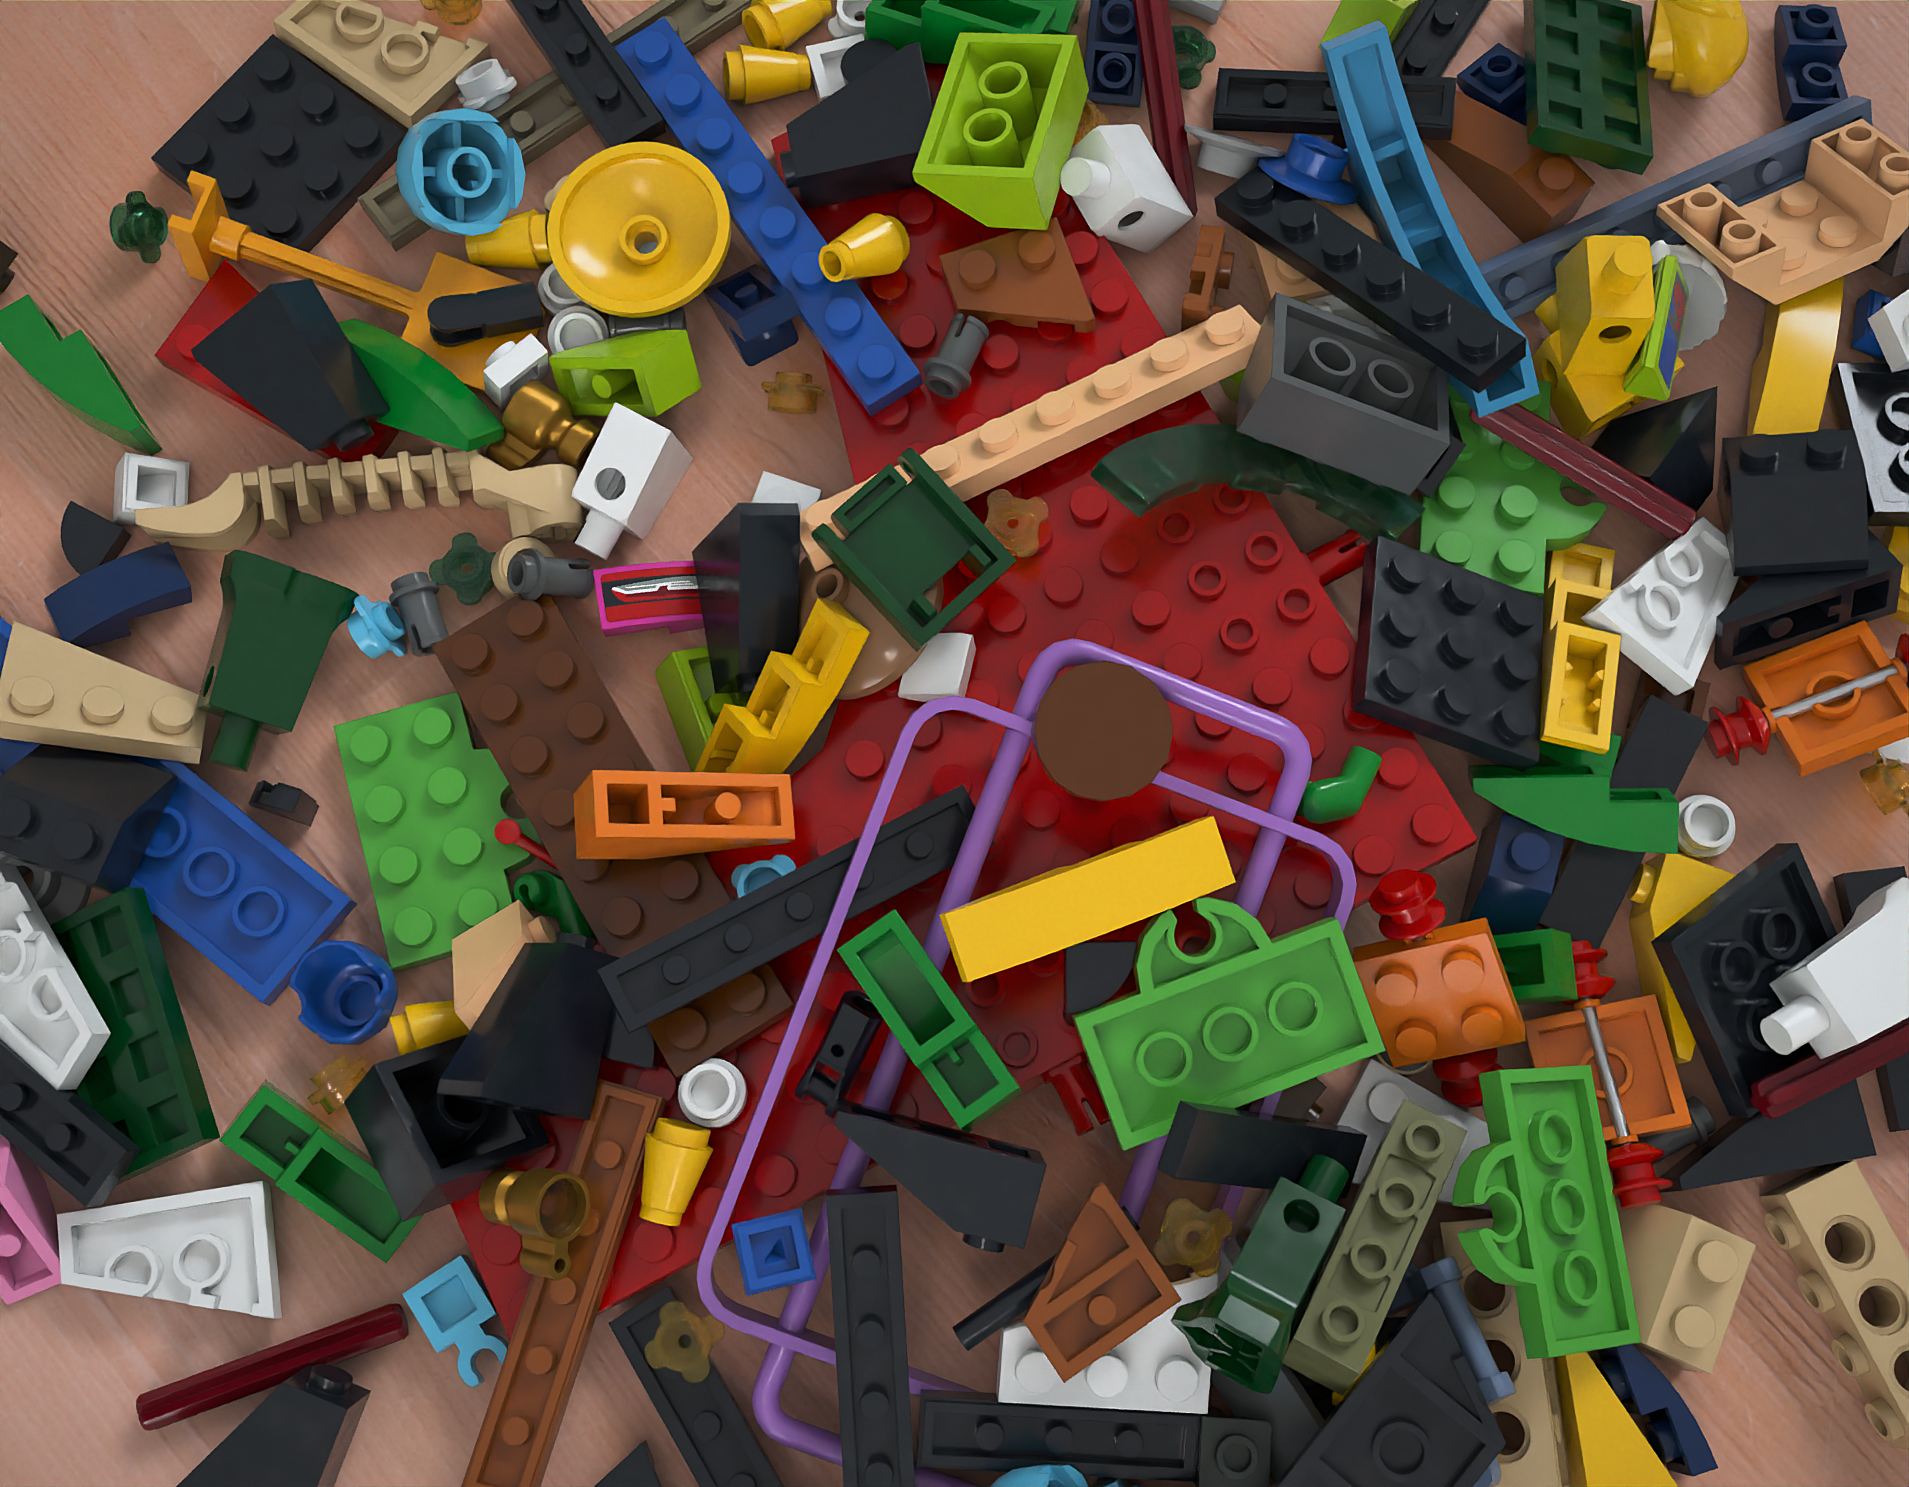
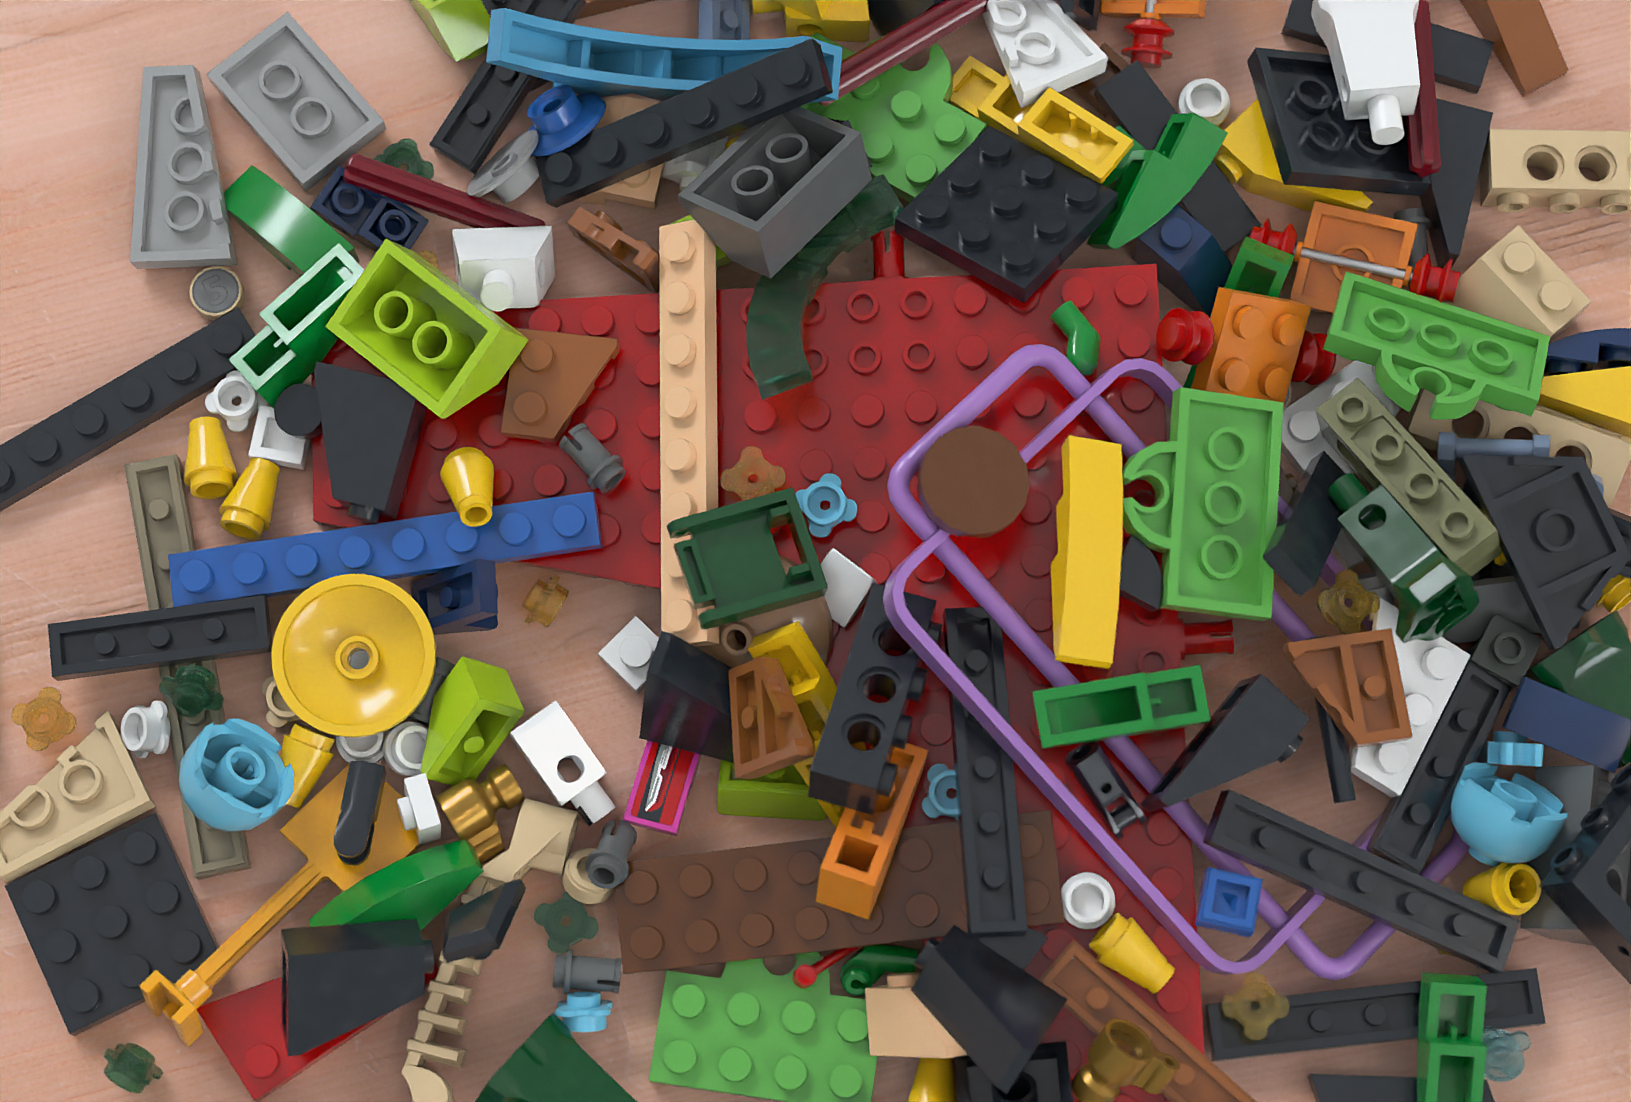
camera: 60 degrees left, 0 degrees up
(411, 473) = (481, 923): none -> black piece
(536, 101) = (192, 690): none -> clear green plate
(720, 777) = (838, 769): none -> black brick
(744, 646) = (765, 720): none -> dark orange wing
(1018, 592) = (826, 490): none -> medium azure plate

